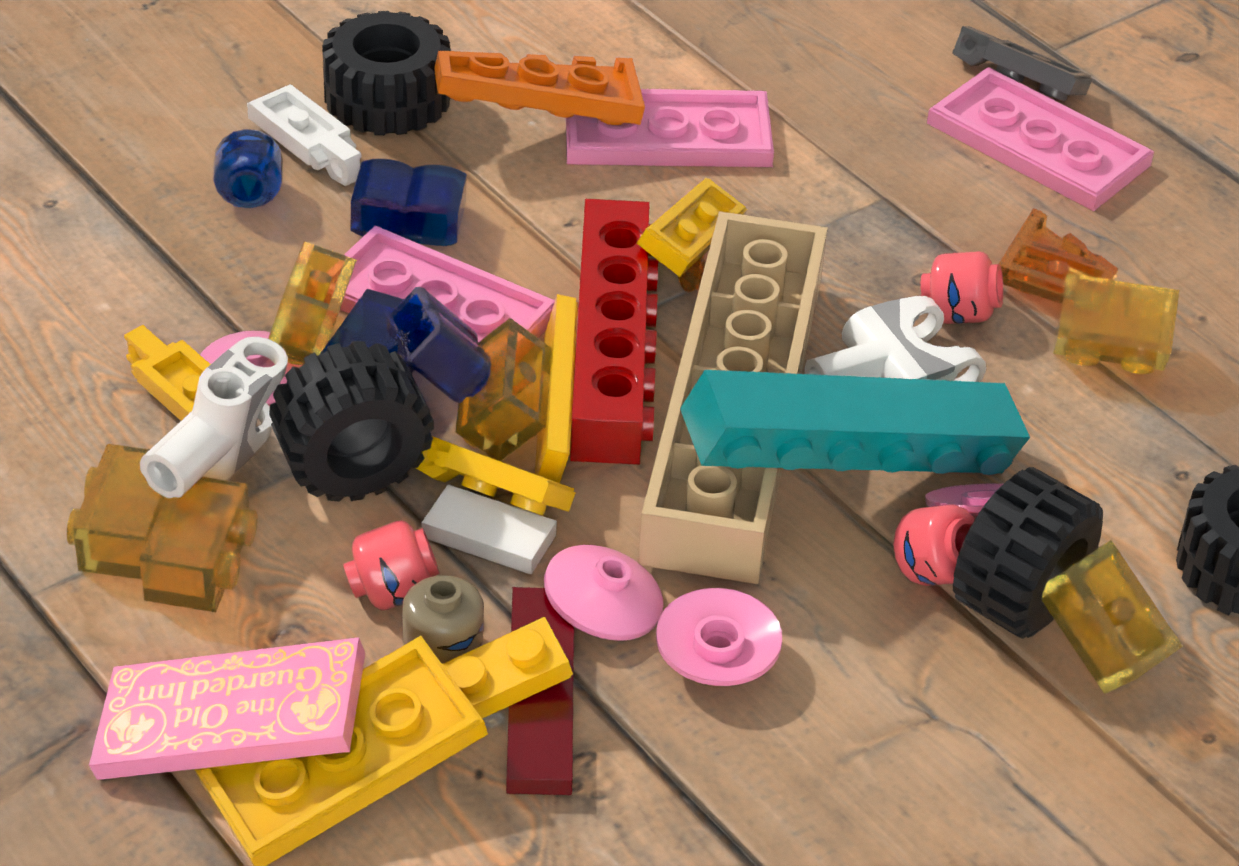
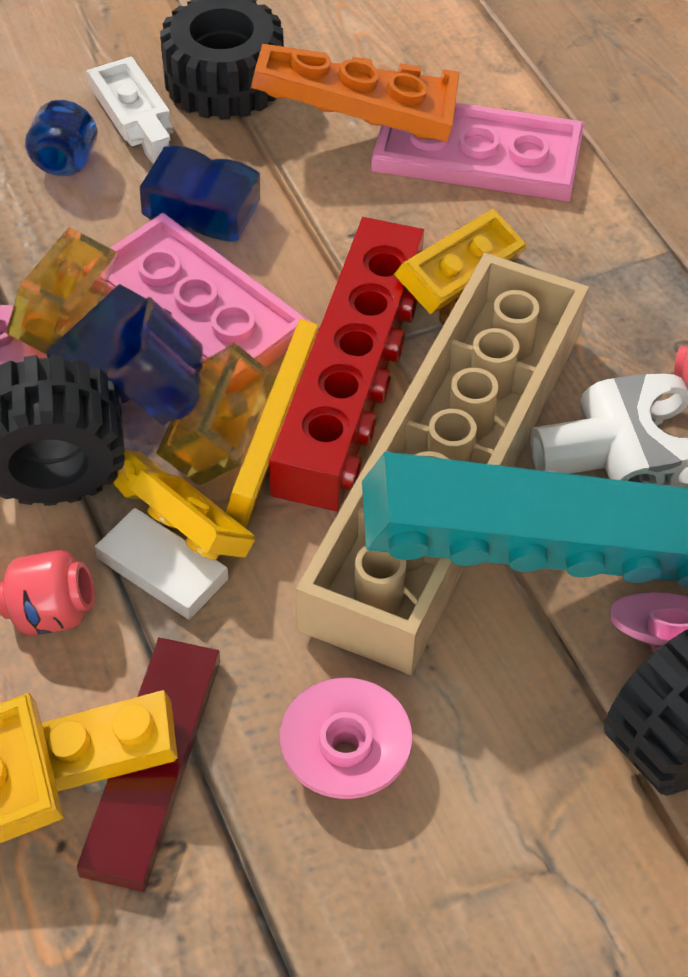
camera: 15 degrees right, 10 degrees up
(445, 614) = (69, 669): dark tan head -> none
(603, 592) = (237, 677): bright pink dish -> none
(930, 543) = (598, 665): coral head -> none

